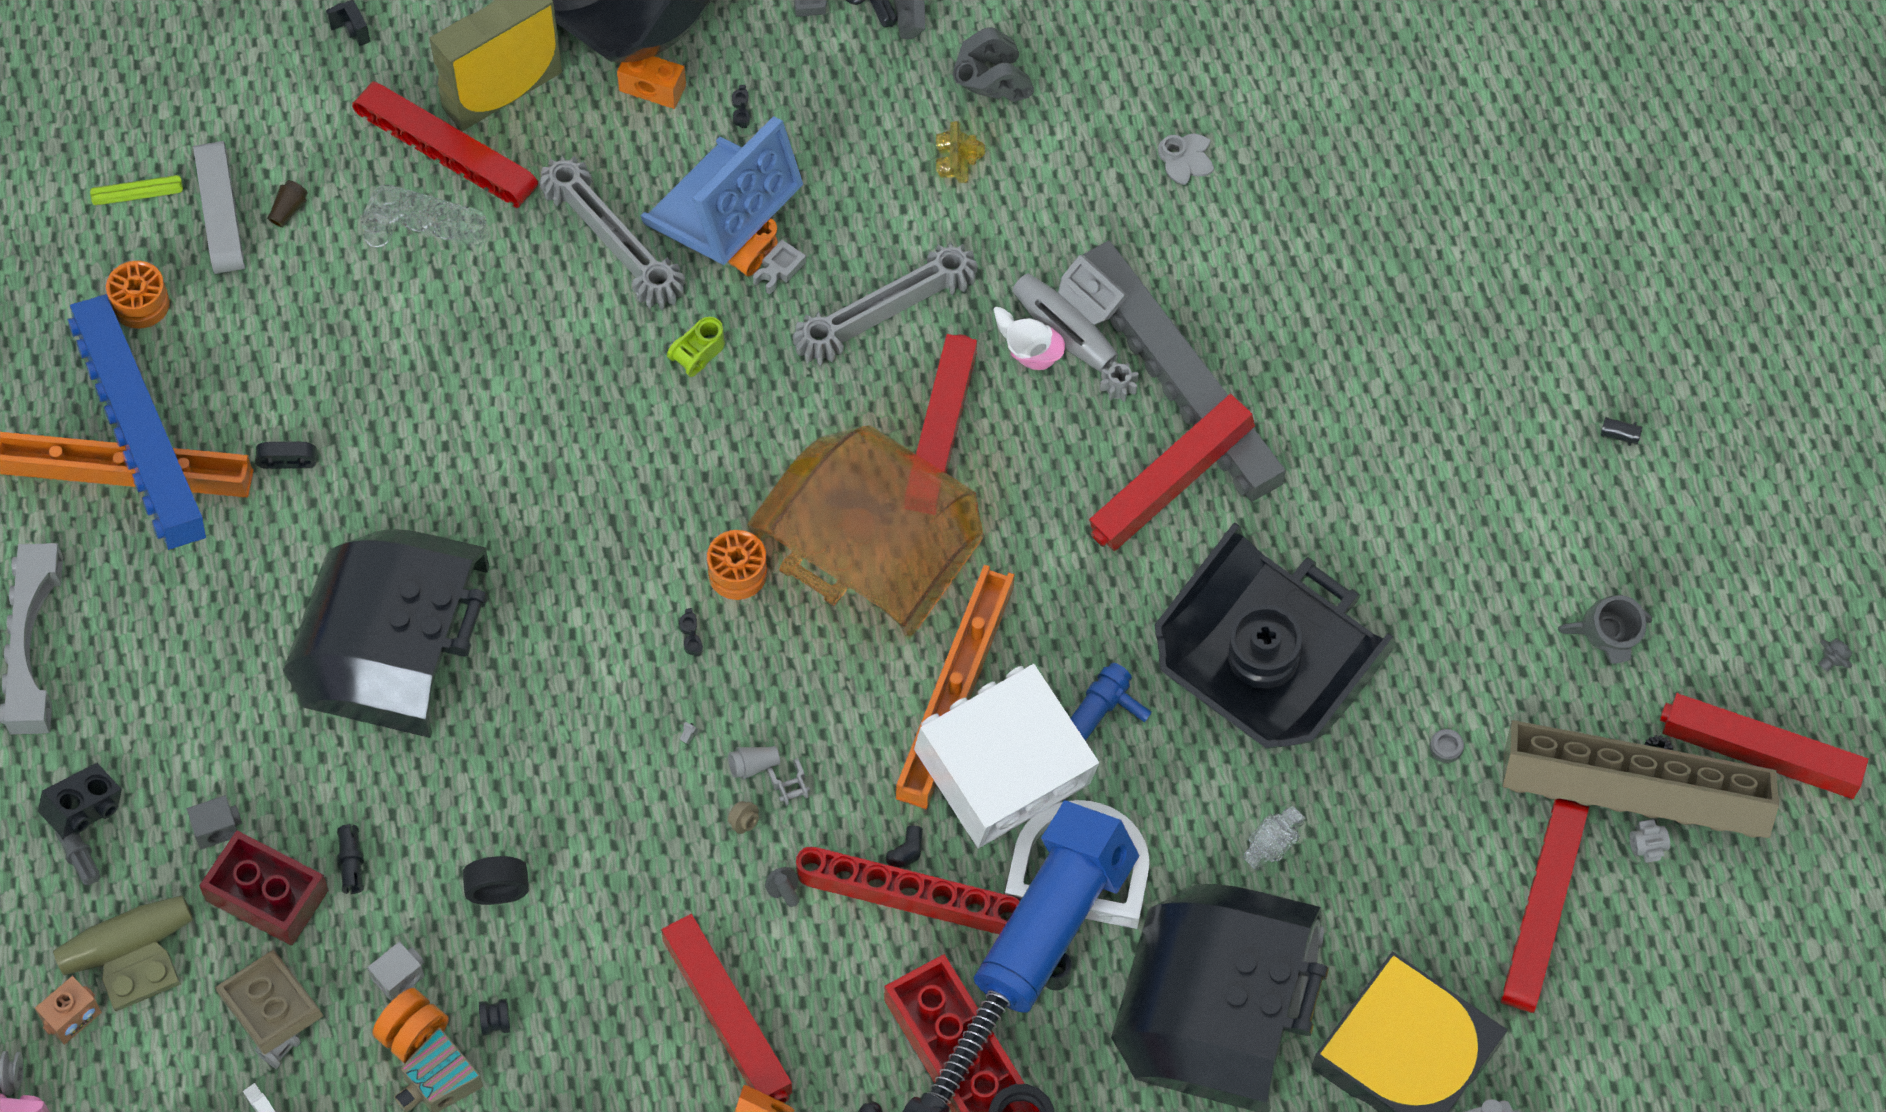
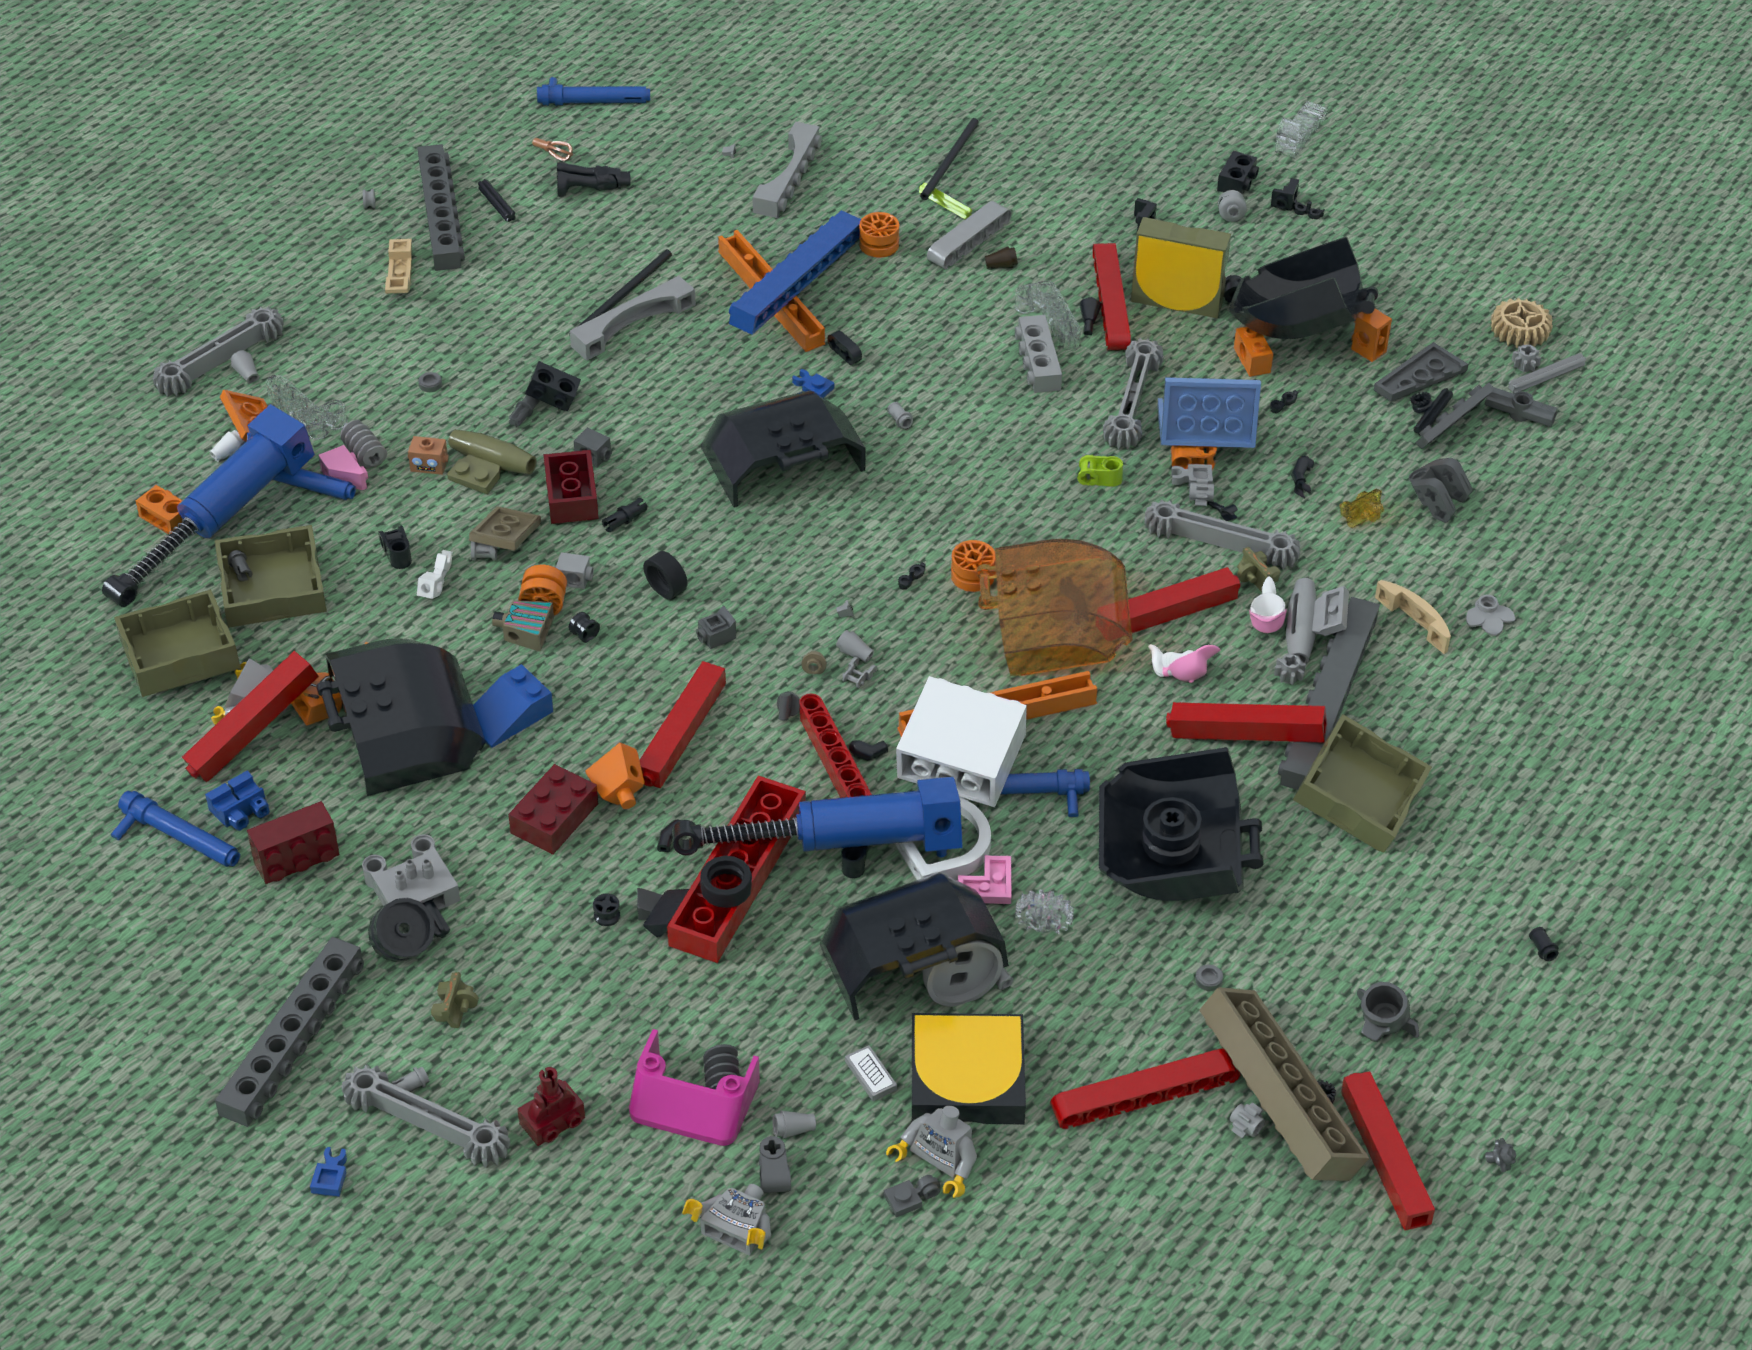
camera: 55 degrees right, 15 degrees down
(76, 137) = (949, 159): none -> black piece
(315, 524) = (817, 383): none -> blue plate
(435, 250) = (1038, 353): none -> light grey brick
(441, 475) = (902, 418): none -> light grey pin
(449, 181) = (1089, 309): none -> black cone
(612, 880) = (717, 628): none -> dark grey window
(812, 277) = (1201, 492): none -> light grey gear
(853, 167) = (1302, 465): none -> black arm
(855, 275) = (1226, 512): none -> black hand
(961, 310) = (1254, 568): none -> olive hips
(1038, 473) = (1183, 666): none -> bright pink hair
(1179, 217) = (1421, 611): none -> tan slope
(1188, 857) = (996, 882): none -> bright pink plate
(1329, 433) = (1362, 783): none -> olive tile

